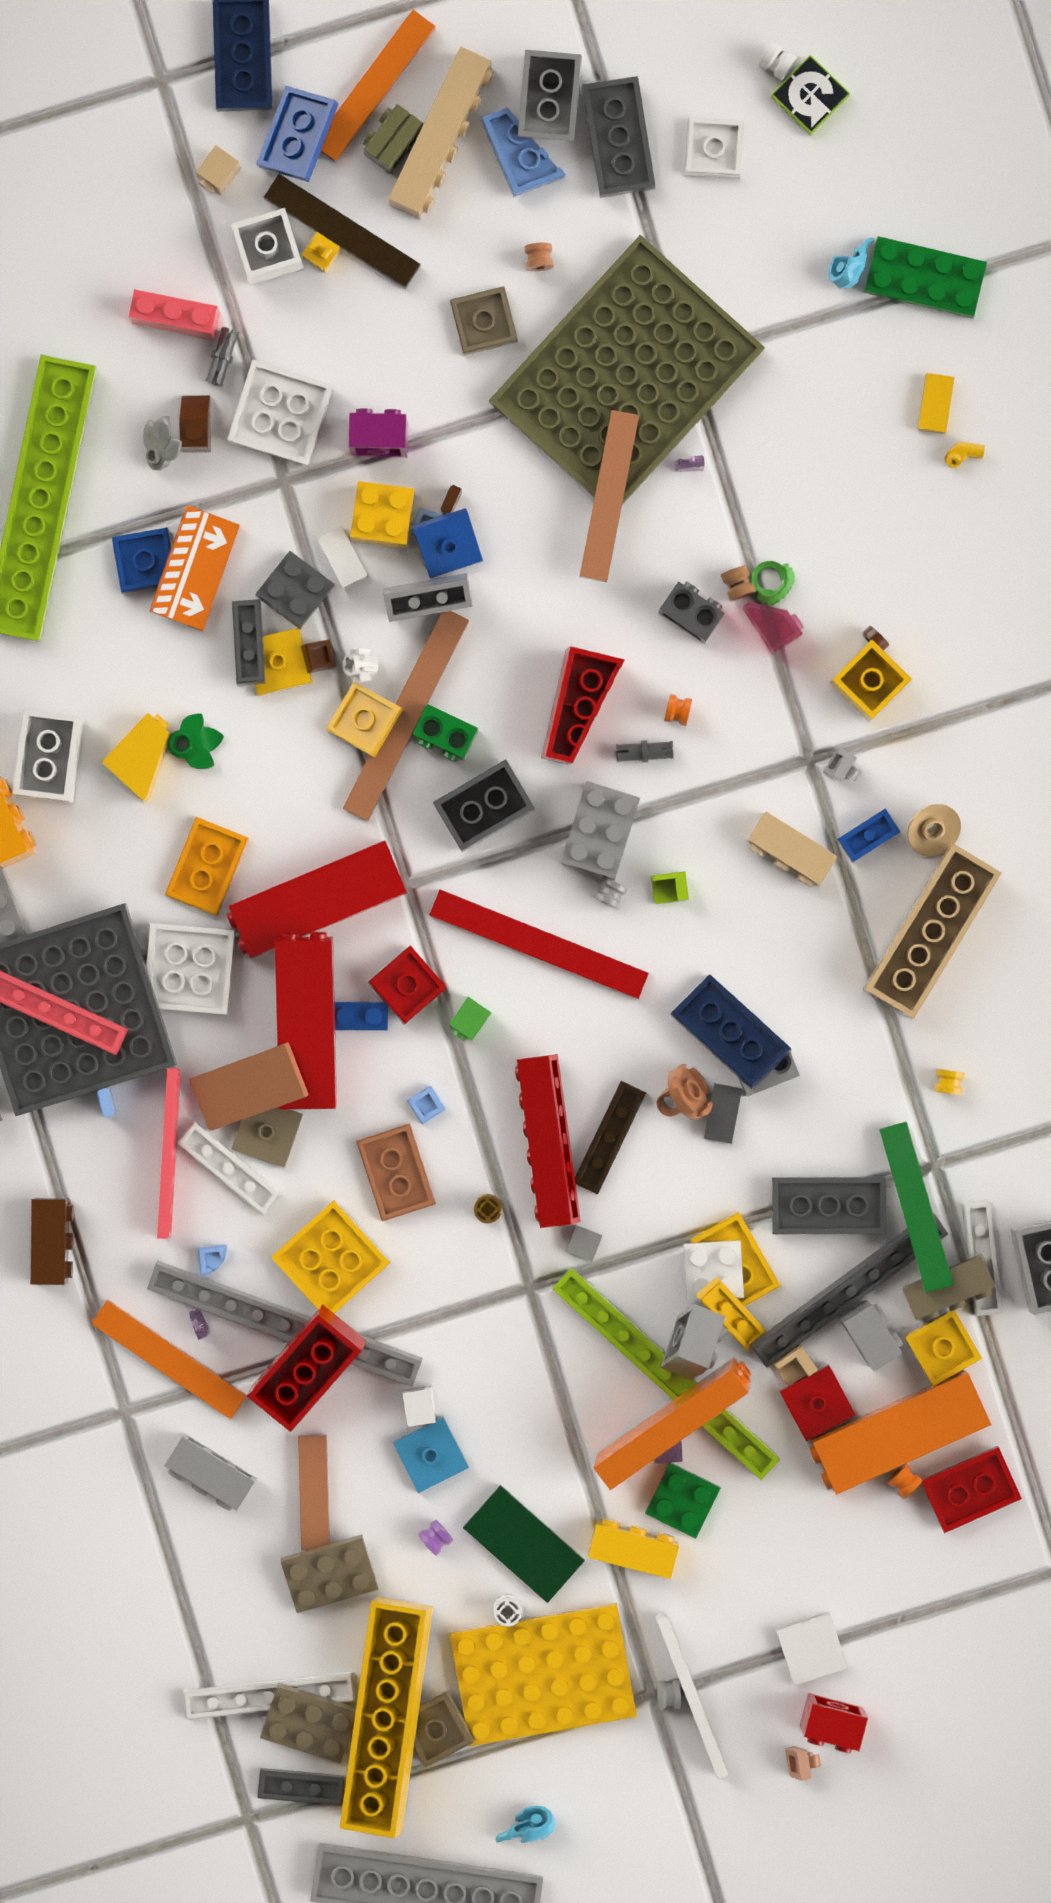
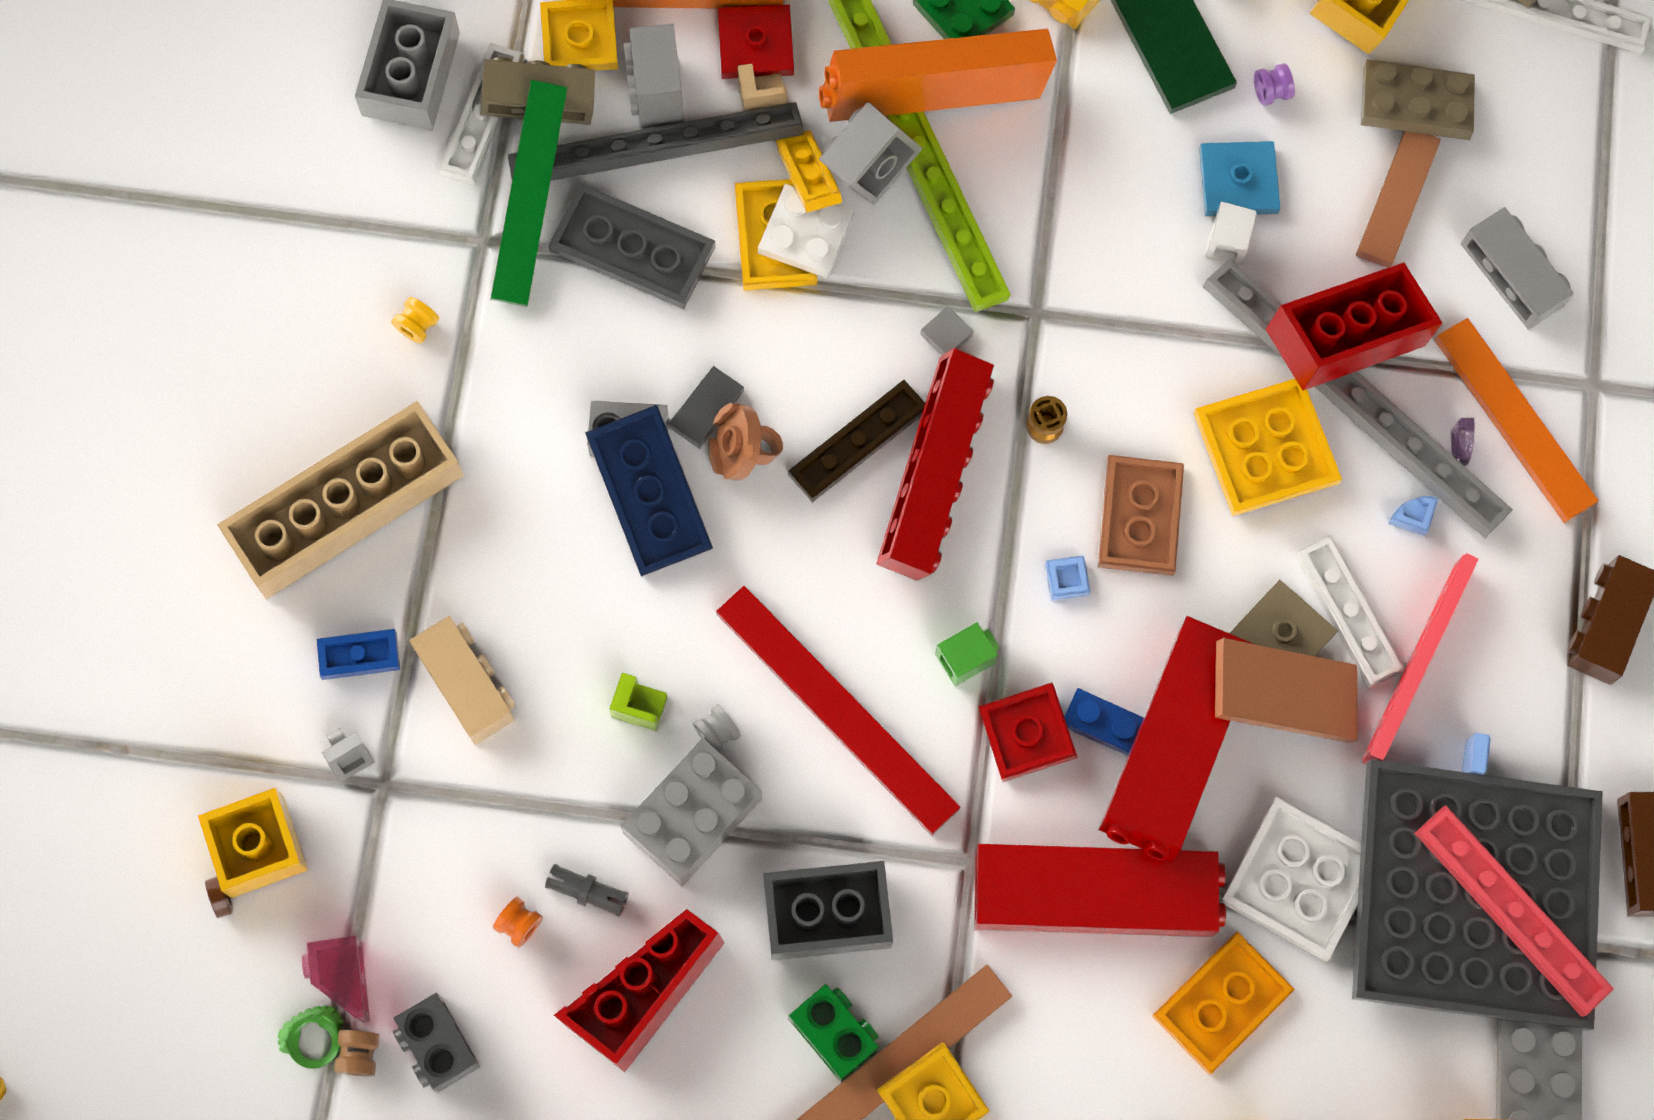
camera: 160 degrees left, 15 degrees down
(936, 839) = (273, 622): tan dish -> none

